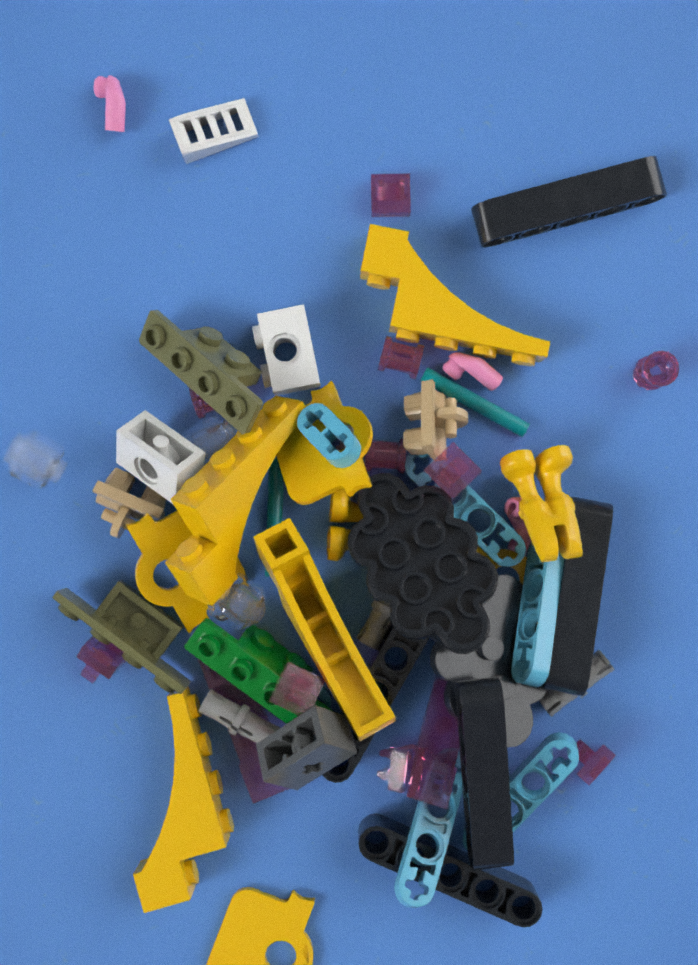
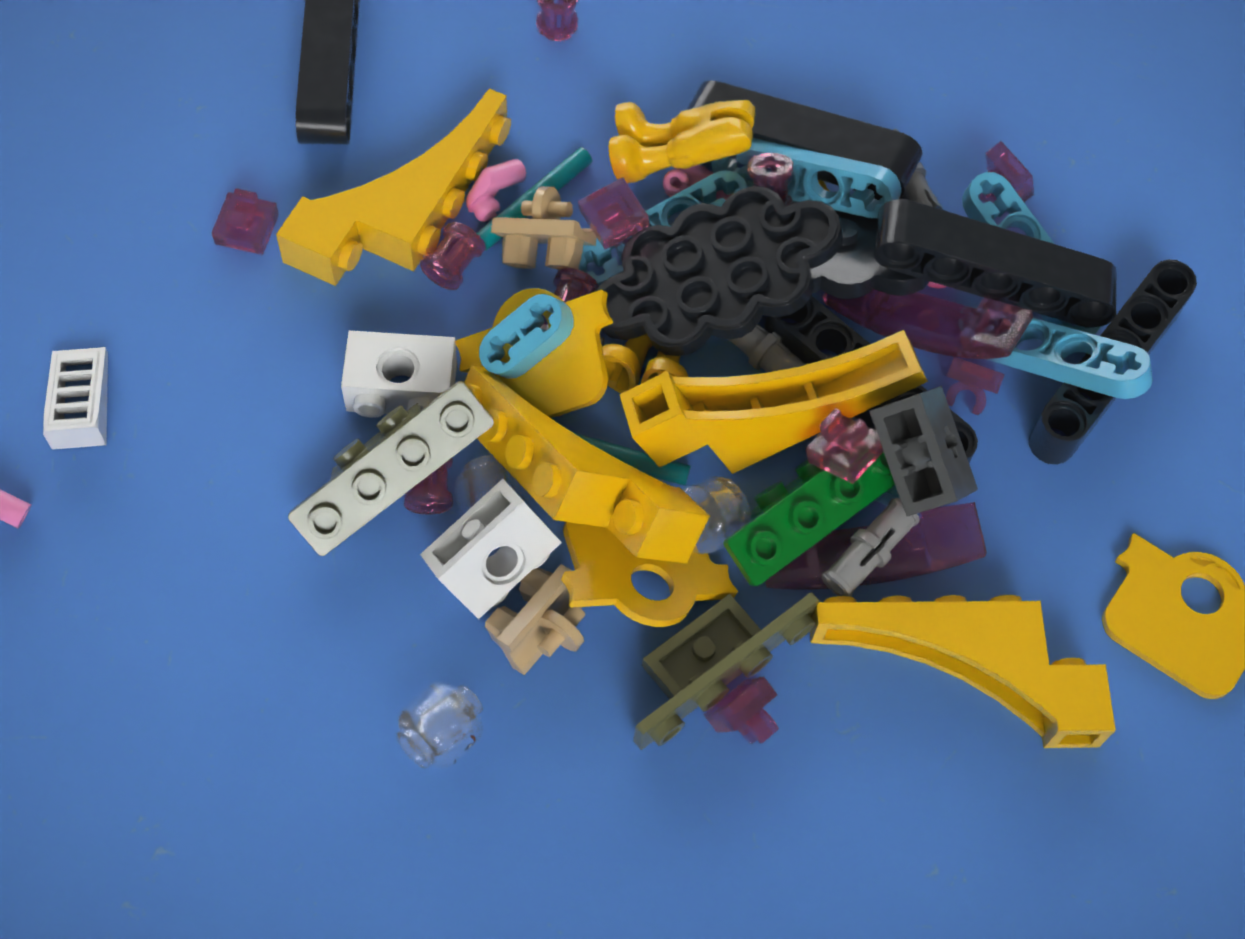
camera: 75 degrees left, 25 degrees down
(518, 588) = (781, 170): none -> clear pink bush

